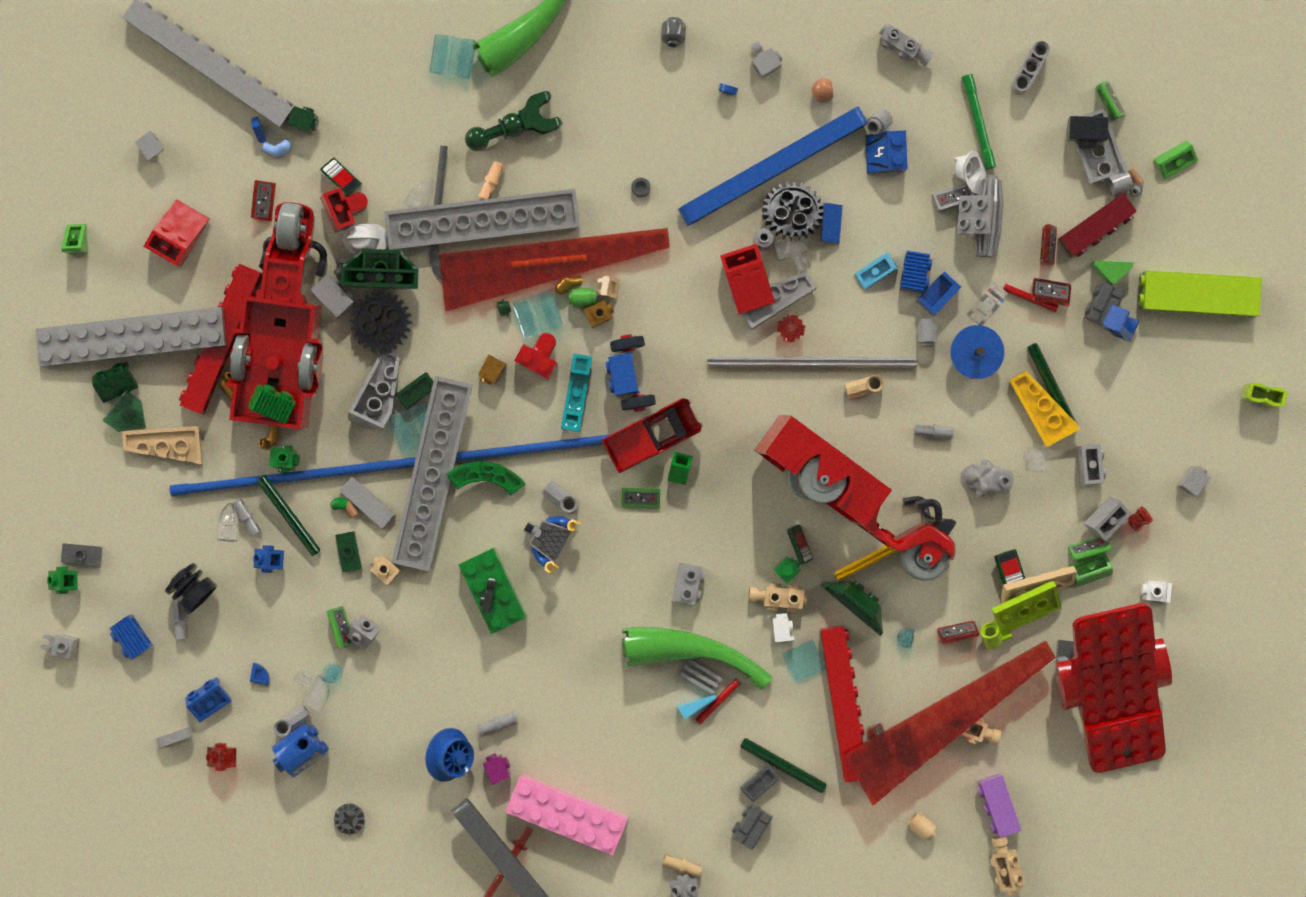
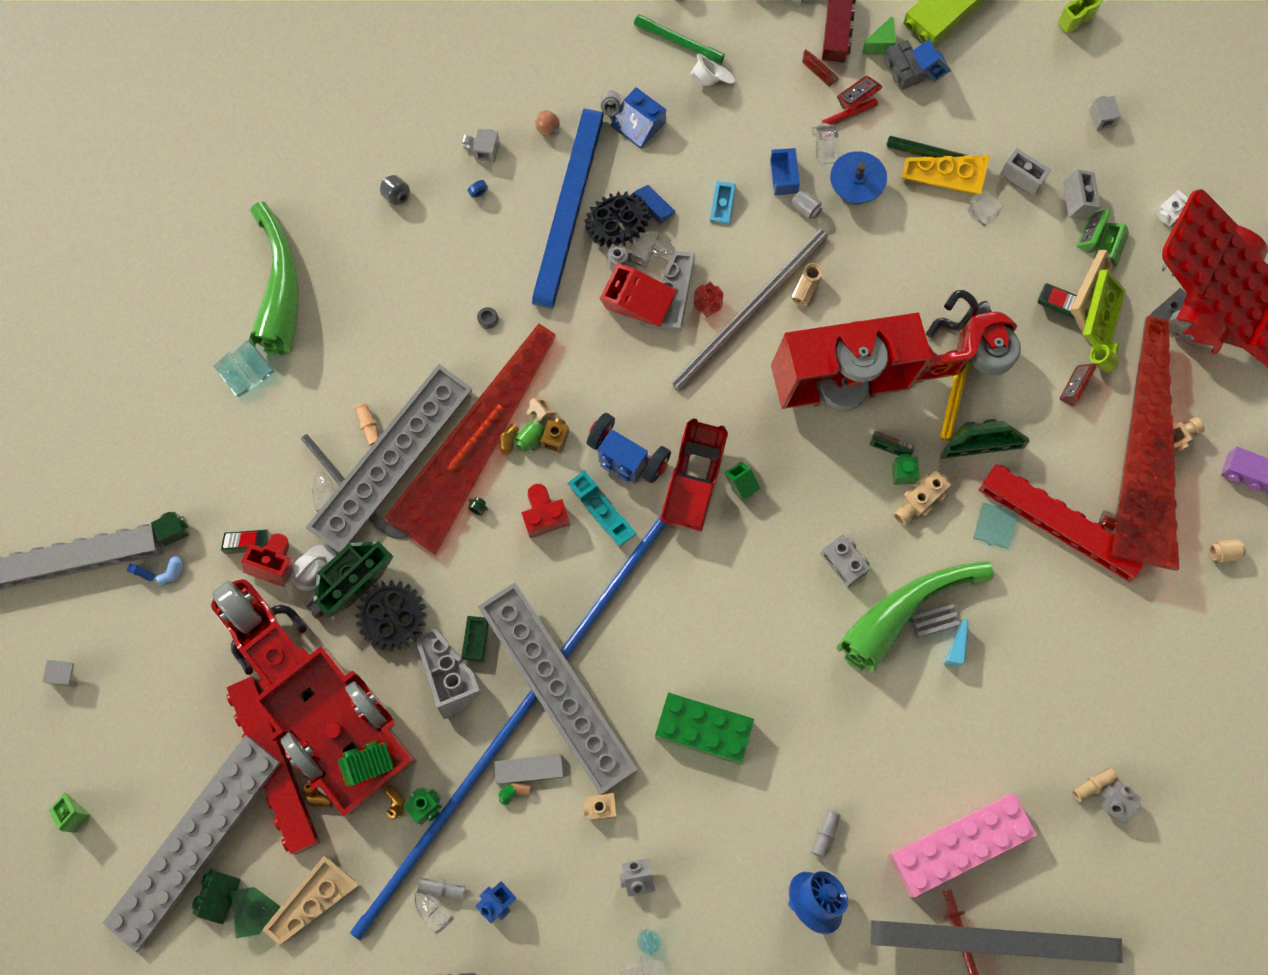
camera: 45 degrees left, 15 degrees down
(176, 233) = (150, 720): slope -> none
(263, 200) = (199, 622): slope -> none
(288, 515) = (475, 848): dark green axle -> none
(333, 296) = (332, 635): light grey brick -> none
(339, 625) = (613, 894): slope -> none
(348, 551) = (555, 825): dark green plate -> none
(409, 426) = (500, 672): clear light blue slope -> none
(485, 471) = (599, 639): green tile -> none
(487, 599) = (709, 735): pearl dark grey plate -> none
(491, 370) = (518, 560): pearl gold brick -> none
(497, 768) = (865, 869): magenta brick -> none
(514, 124) = (349, 354): dark green piece -> none
(538, 313) = (508, 484): clear light blue slope -> none
(549, 539) = (704, 639): torso -> none
(559, 496) = (675, 600): light grey piece -> none
(641, 497) = (737, 535): slope -> none
(717, 702) = (971, 634): red bar -> none
(751, 826) = (1108, 692): dark grey brick -> none
(760, 782) = (1074, 651): dark grey plate -> none
(782, 628) = (952, 517): white brick -> none
(783, 765) = (1074, 619): dark green axle -> none
(899, 45) = (568, 41): light grey brick -> none
(906, 637) = (1047, 427): clear light blue plate -> none
(915, 272) = (751, 174): blue brick -> none
(934, 431) = (892, 265): light grey axle -> none
(950, 197) = (719, 102): slope -> none
(983, 216) = (755, 90): light grey plate -> none
(987, 478) = (967, 256): light grey head -> none
(1139, 519) = (1102, 173): clear red wheel -> none

